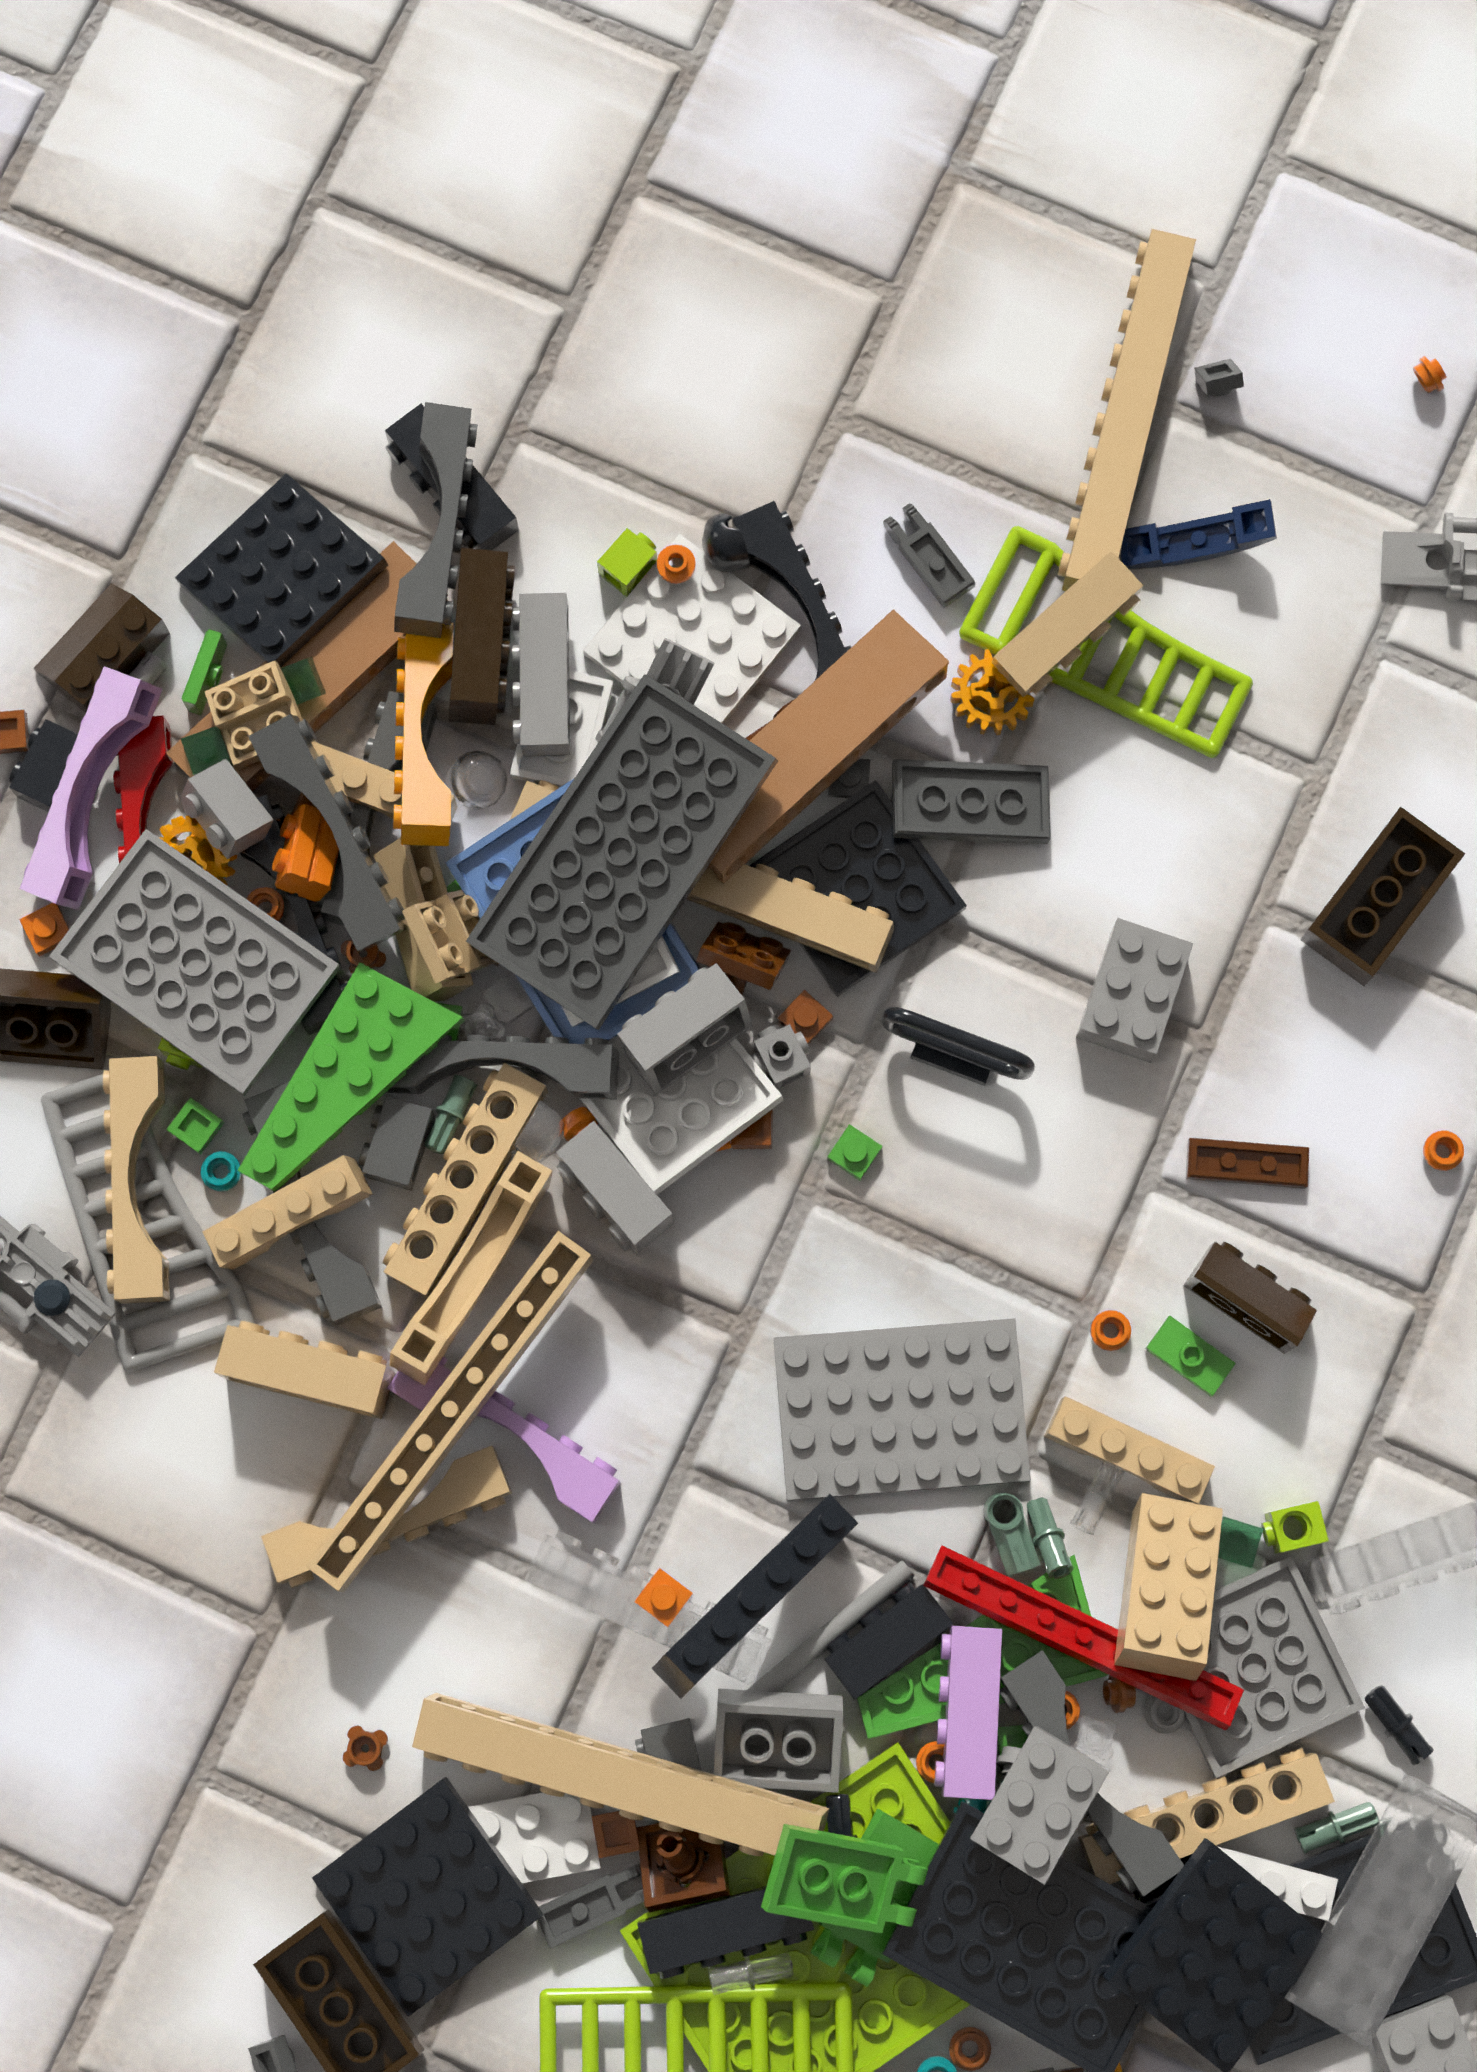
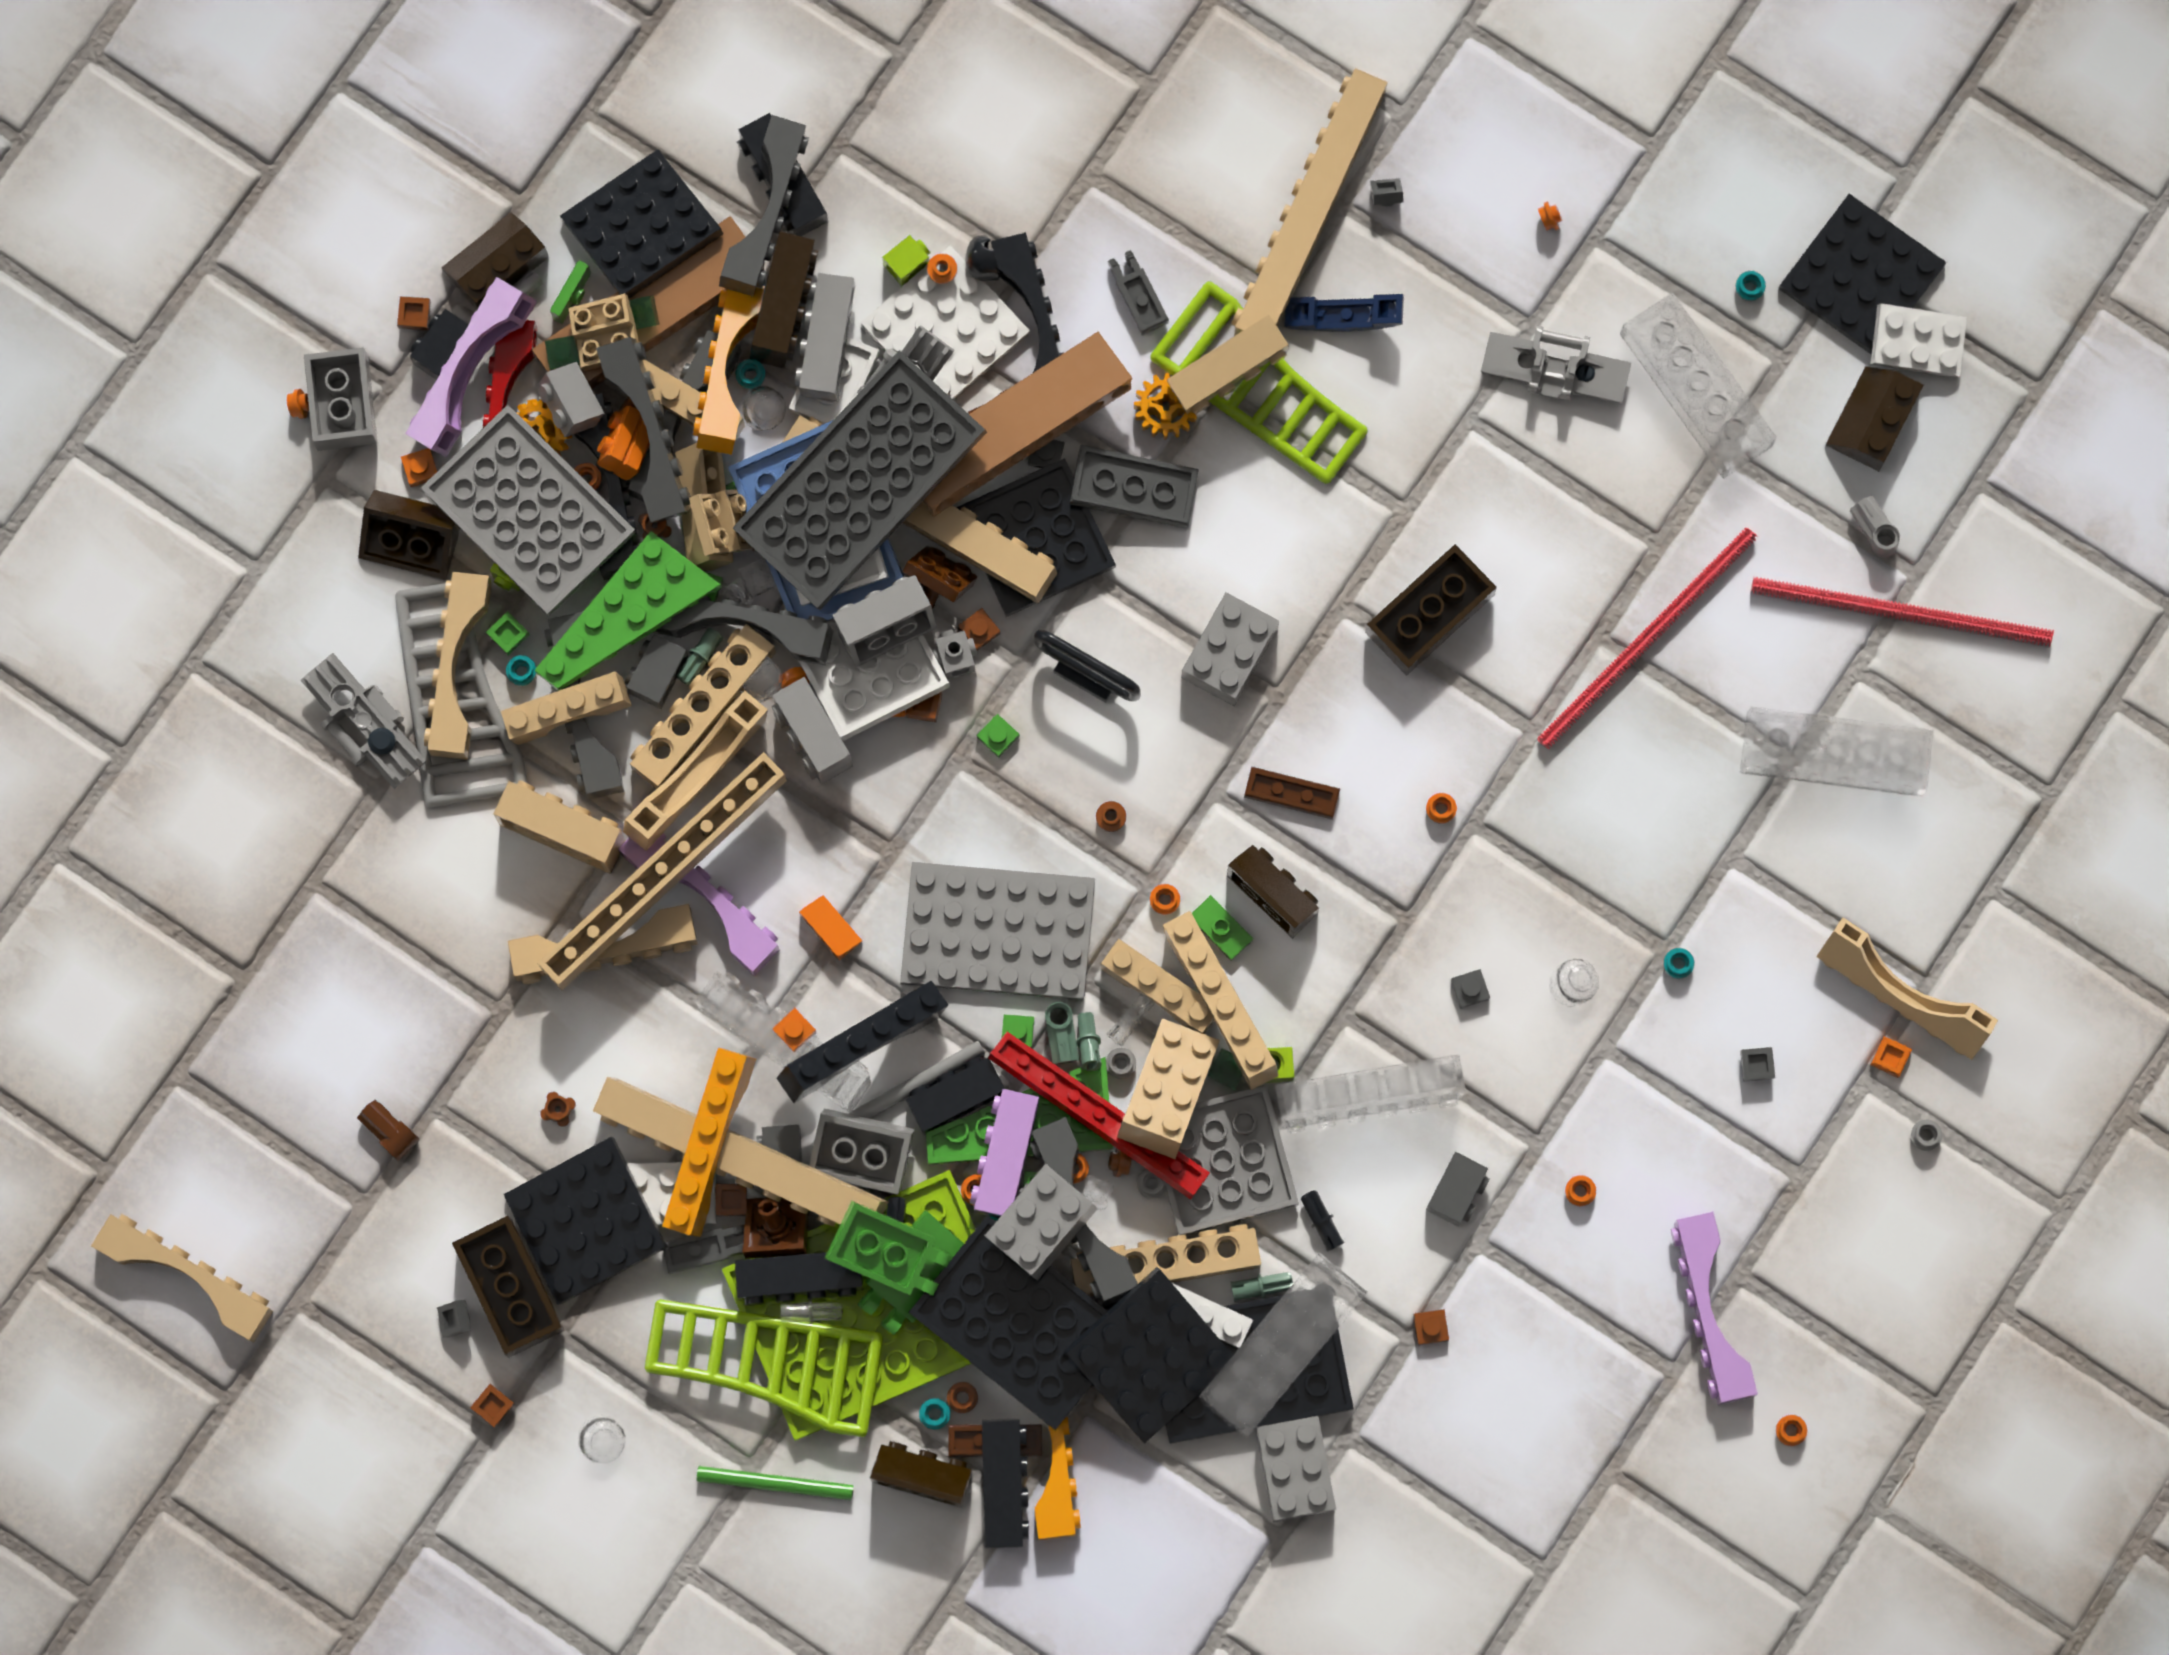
camera: 10 degrees right, 0 degrees up
(153, 1823) = (392, 1134): none -> reddish brown piece
(449, 728) = (750, 365): none -> teal plate
(578, 1725) = (694, 1182): none -> light orange arch
(682, 1442) = (830, 927): none -> orange slope
(953, 1534) = (1020, 1027): none -> bright green plate
(1020, 1246) = (1111, 826): none -> dark orange plate
(1107, 1554) = (1125, 1054): none -> light grey plate
(1232, 1474) = (1221, 999): none -> tan arch

